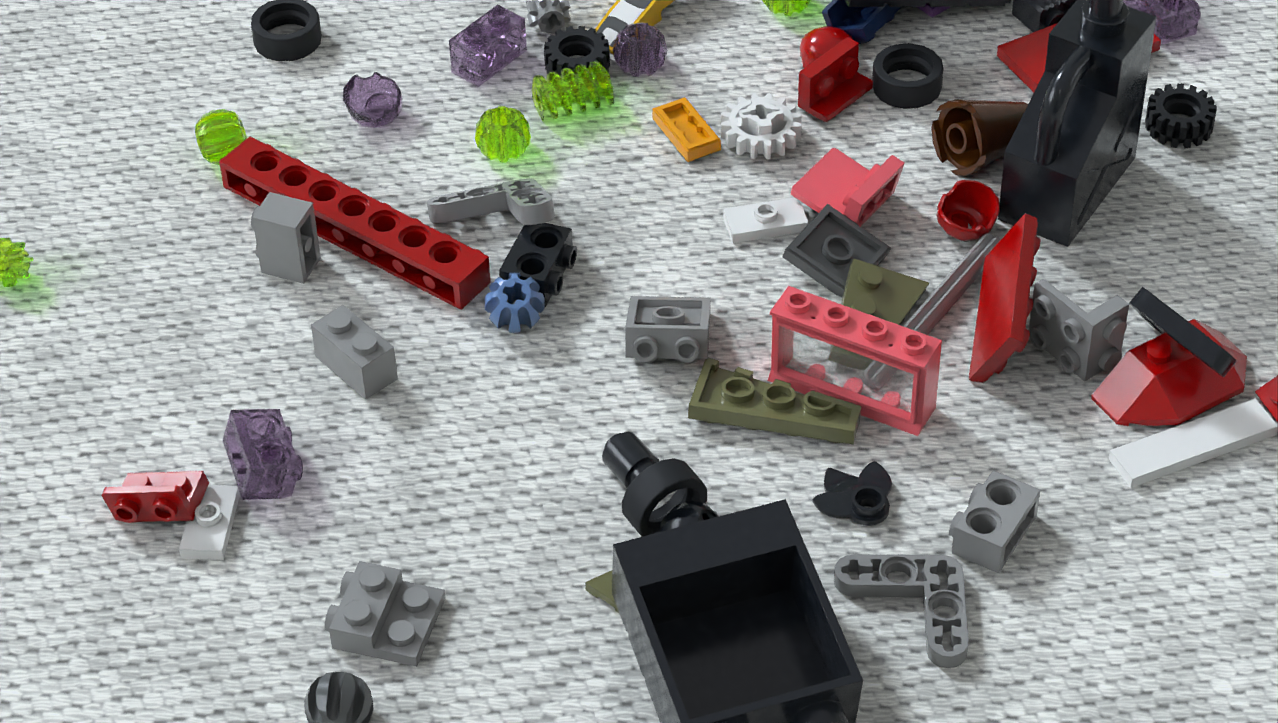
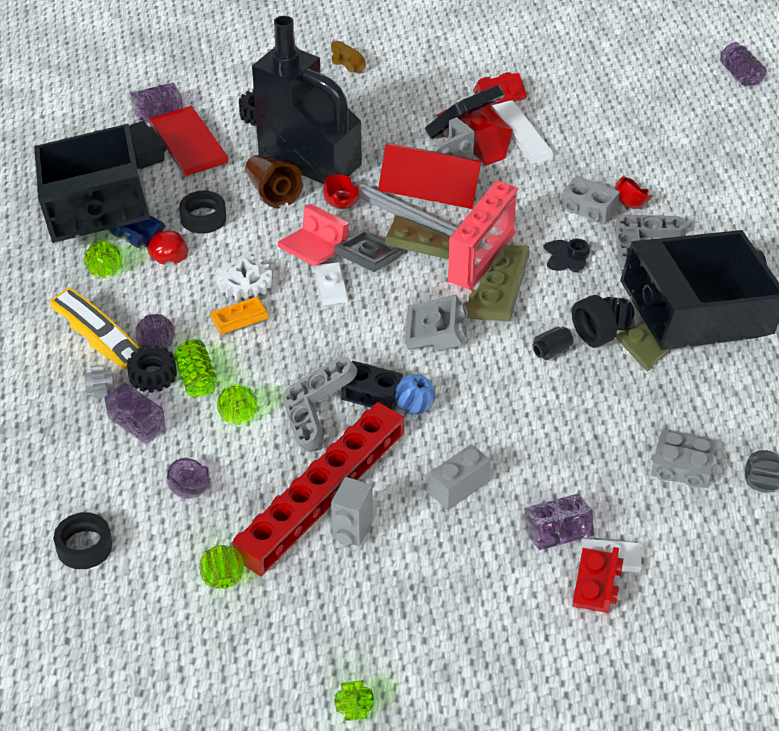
camera: 90 degrees left, 0 degrees up
(832, 81) = (207, 241): red bracket -> none
(1022, 577) = (631, 194): none -> red hair

